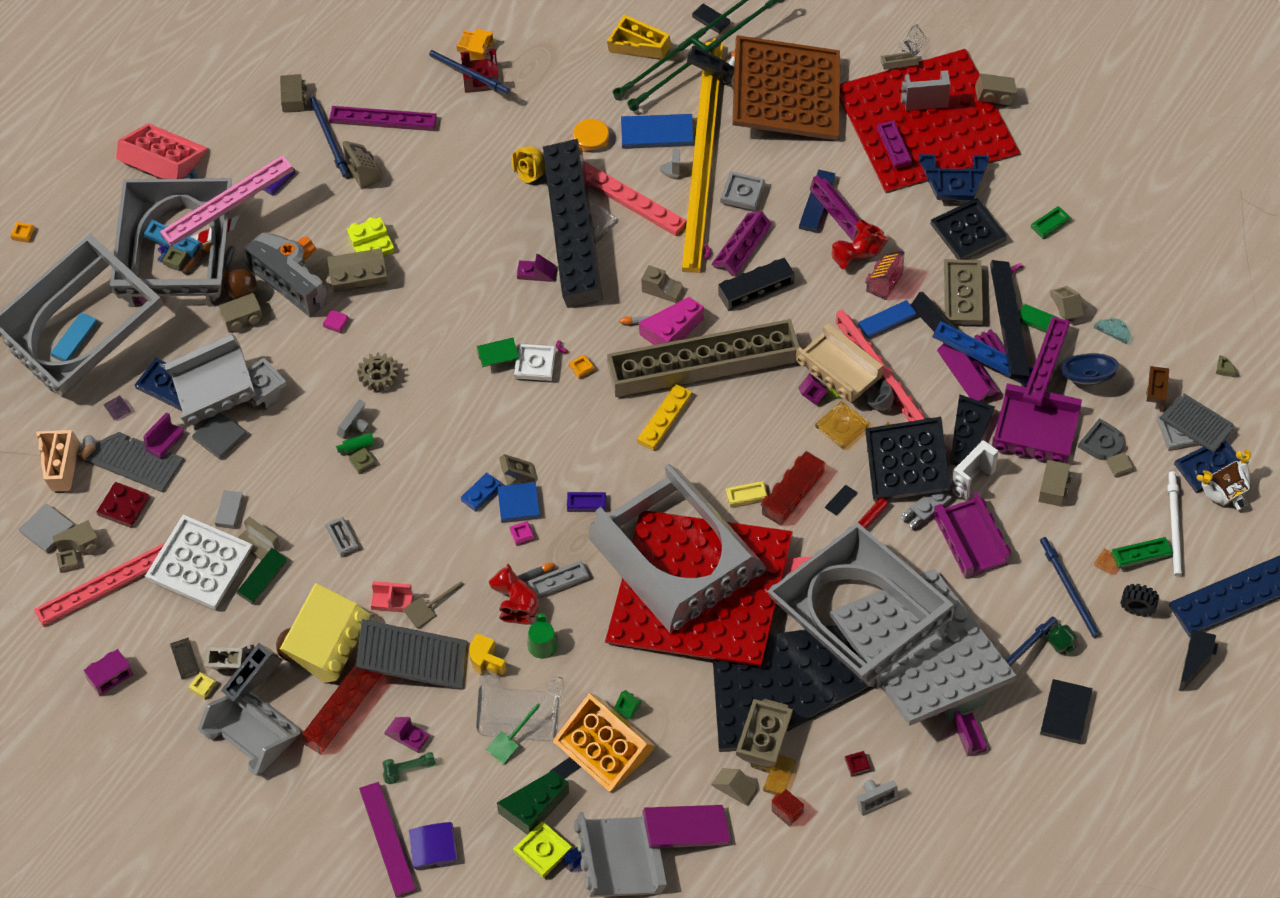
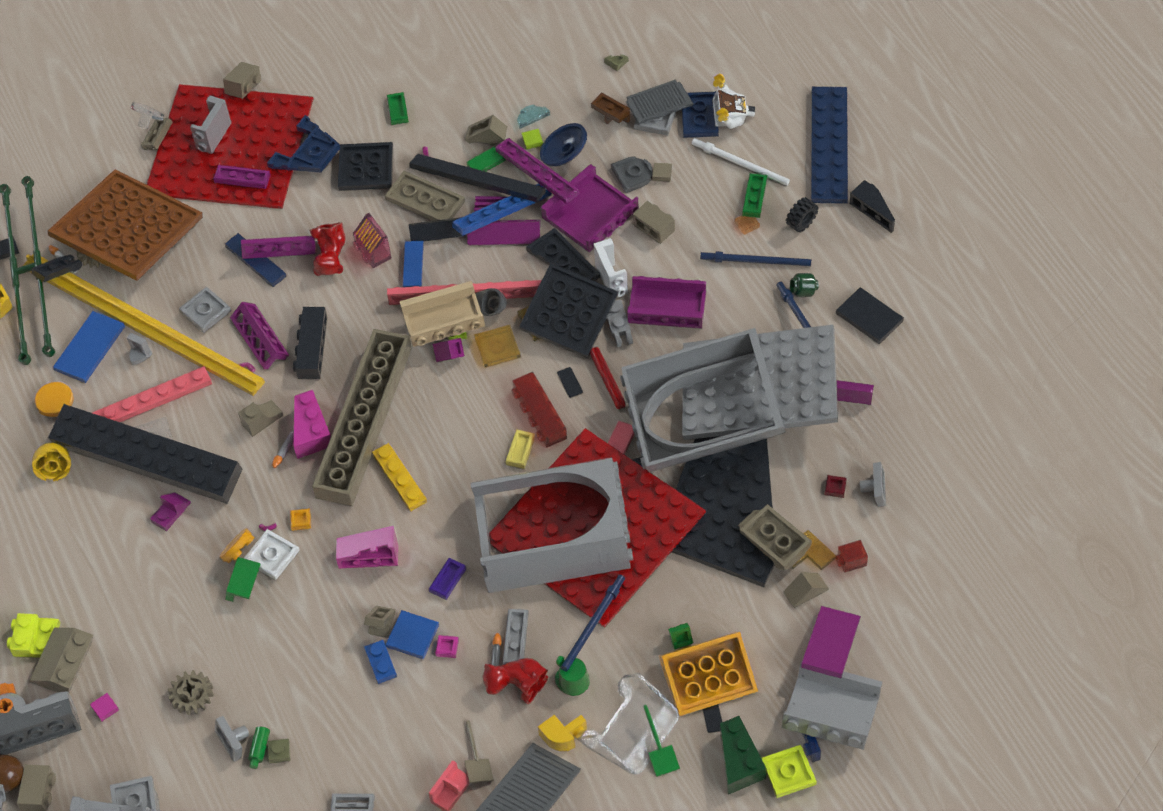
camera: 60 degrees left, 0 degrees up
(518, 331) = (233, 550): none -> light orange tile
(576, 428) = (368, 549): none -> dark pink wedge
(634, 628) = (611, 593): none -> dark blue bar
(1087, 342) = (532, 139): none -> lime tile

